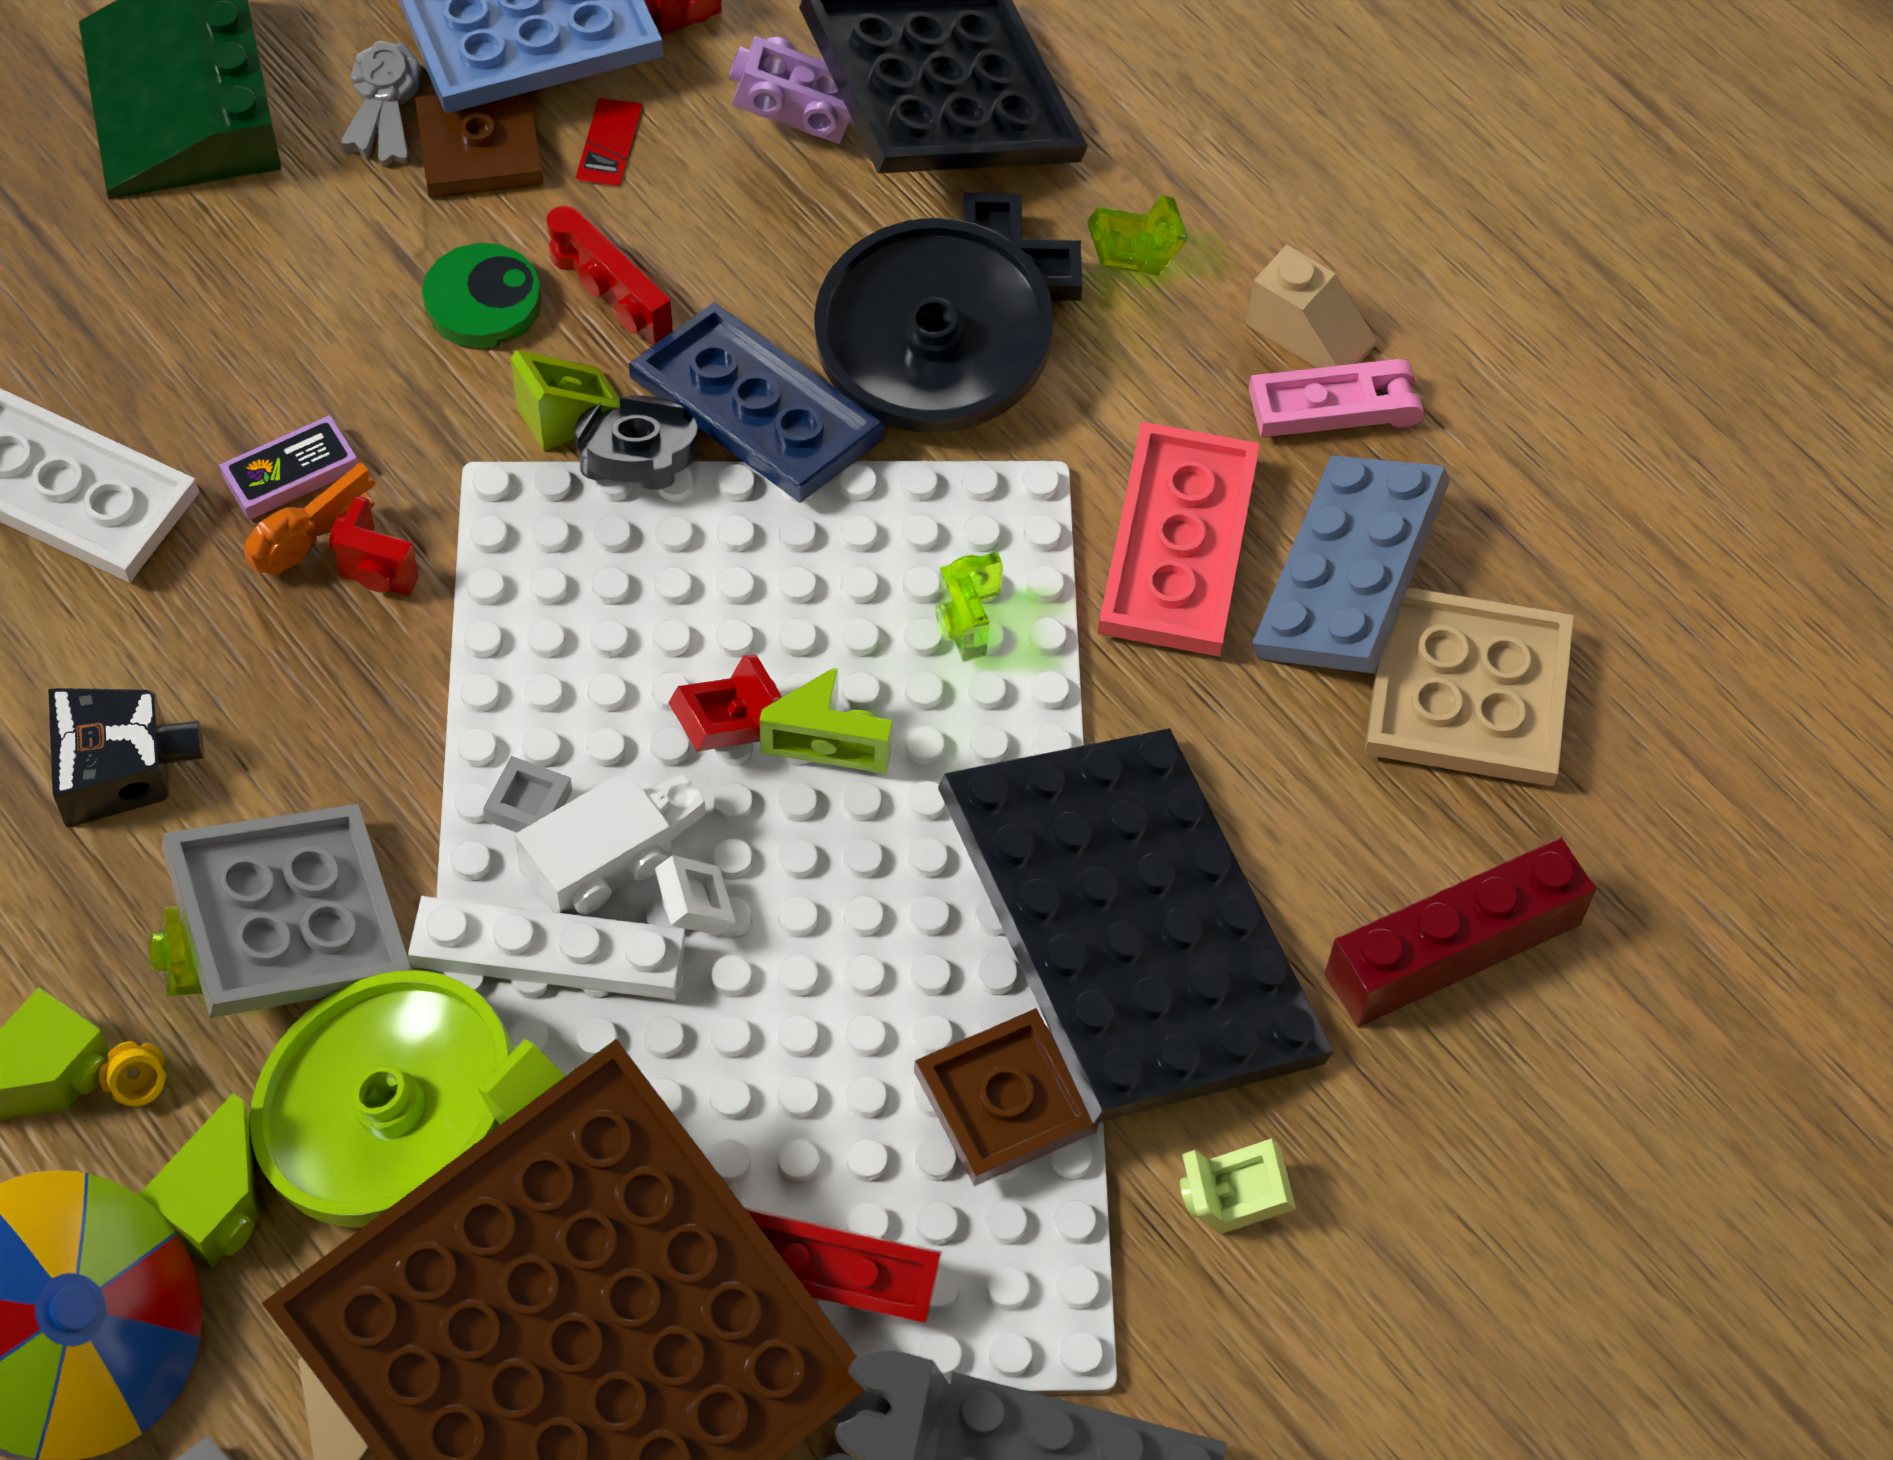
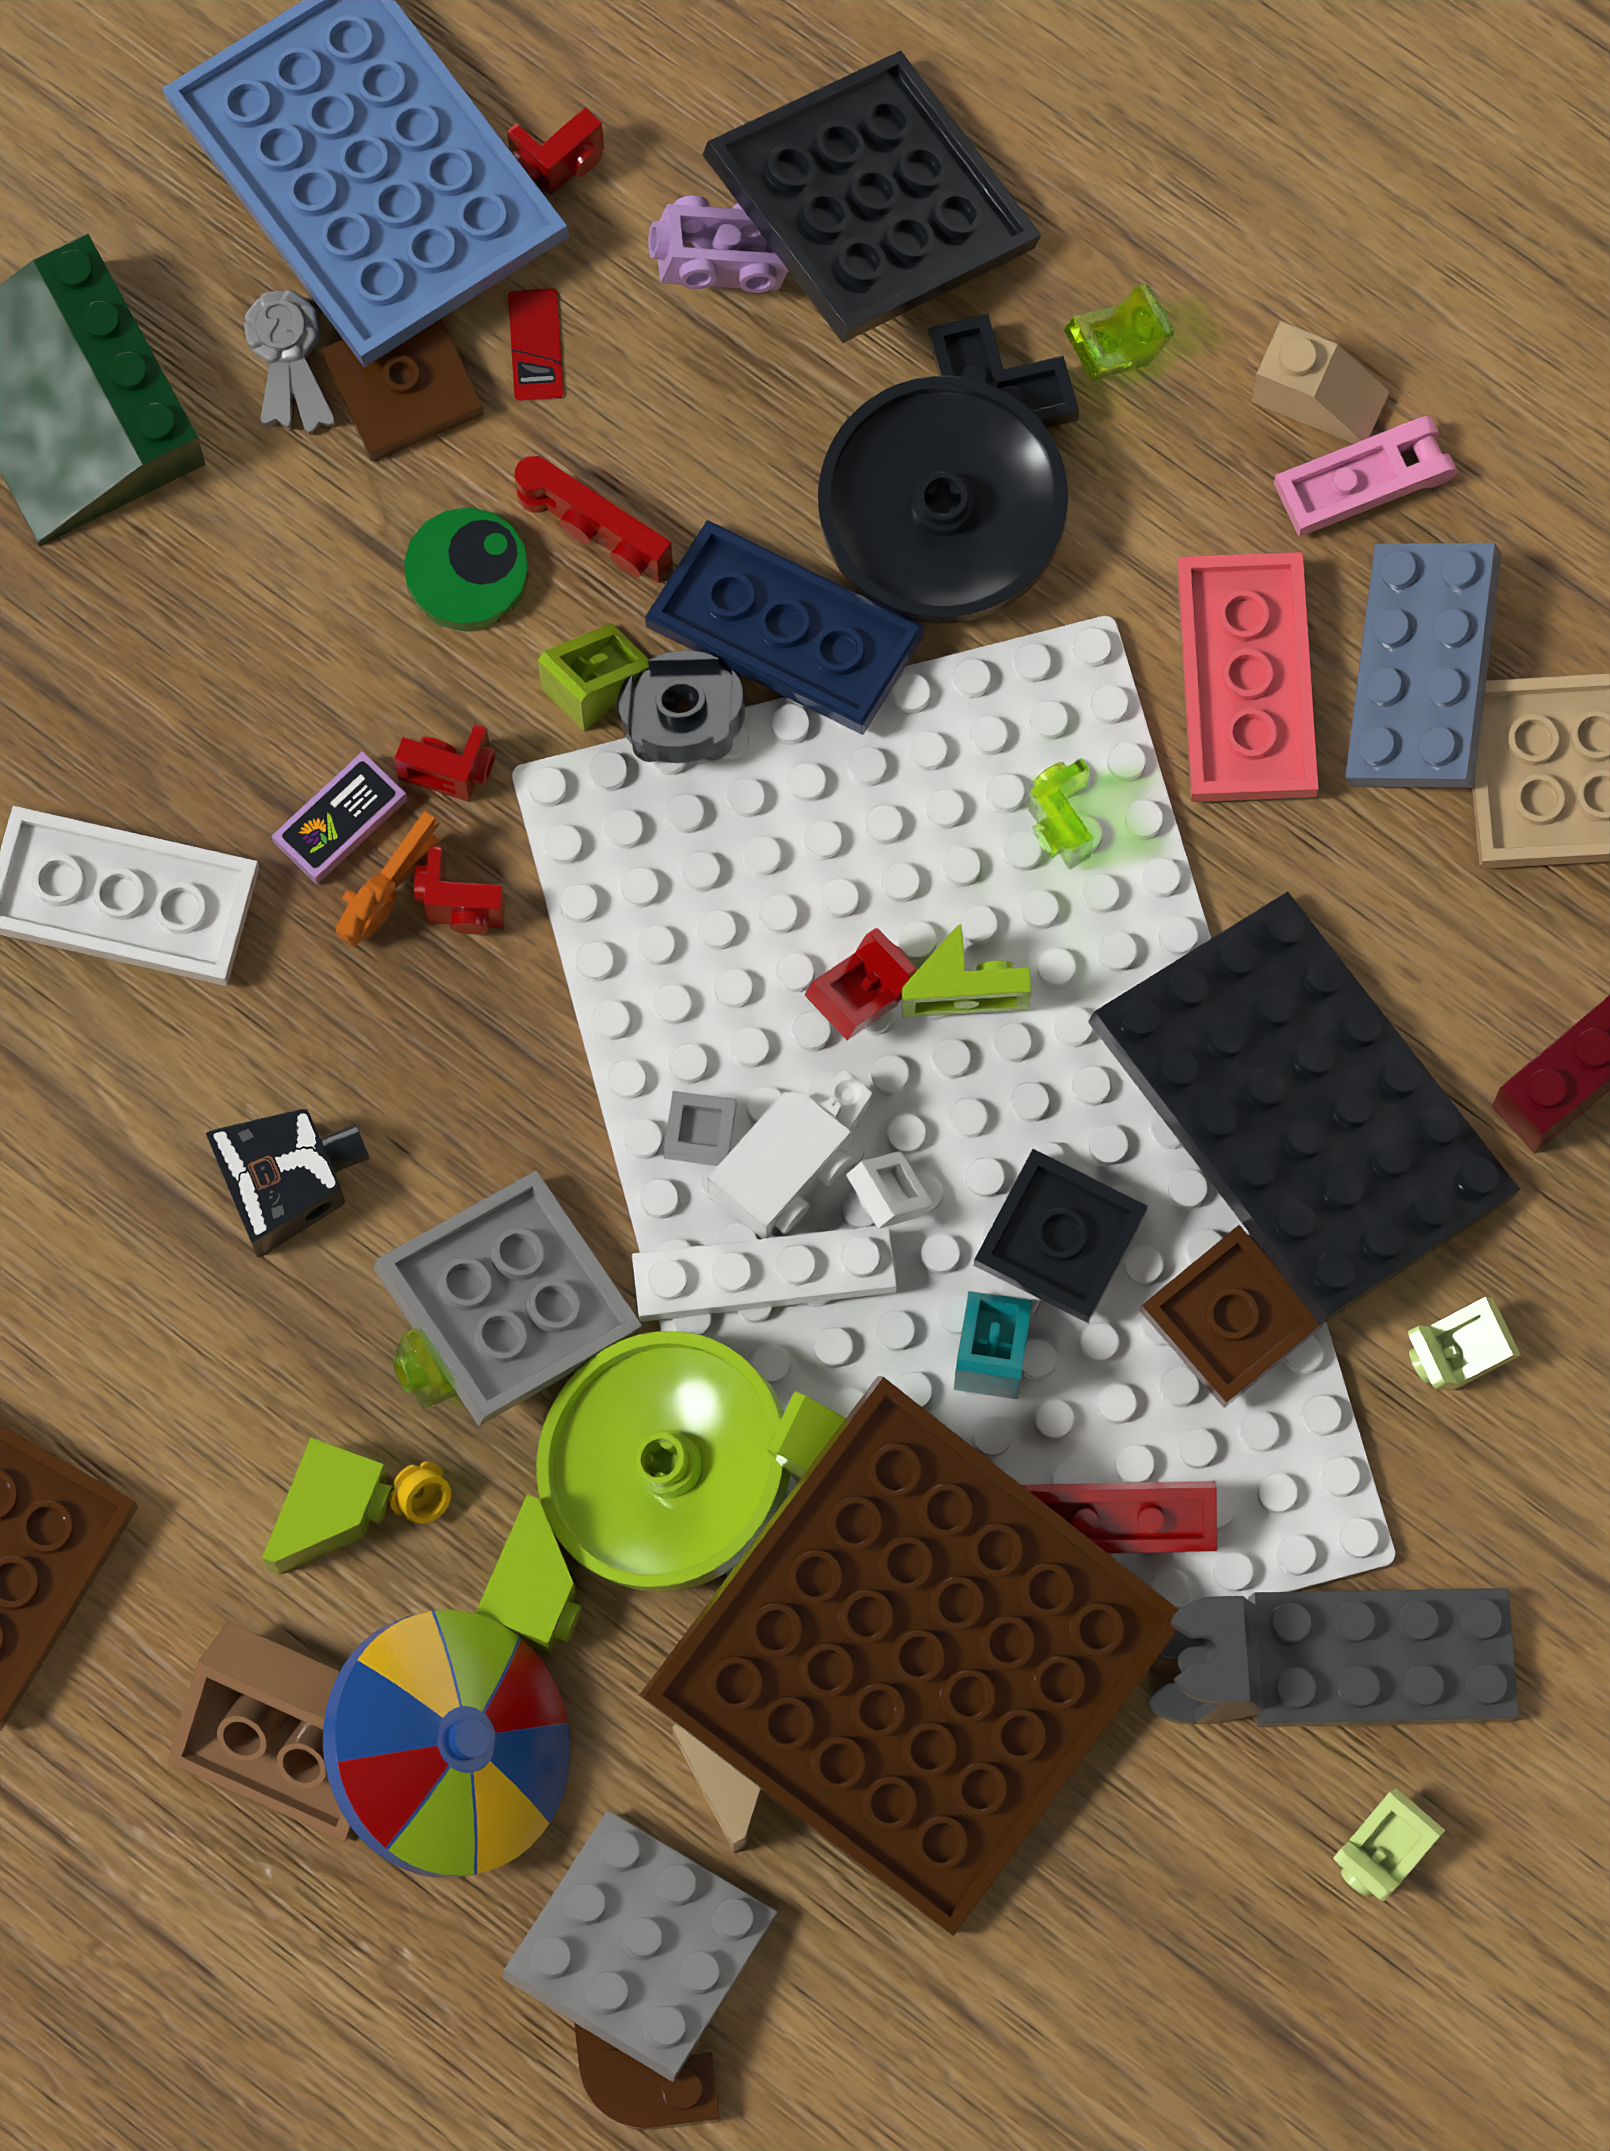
camera: 10 degrees left, 15 degrees up
(397, 445) = (439, 768): none -> red bracket
(750, 1069) = (992, 1345): none -> teal slope
(853, 980) = (1060, 1235): none -> black plate

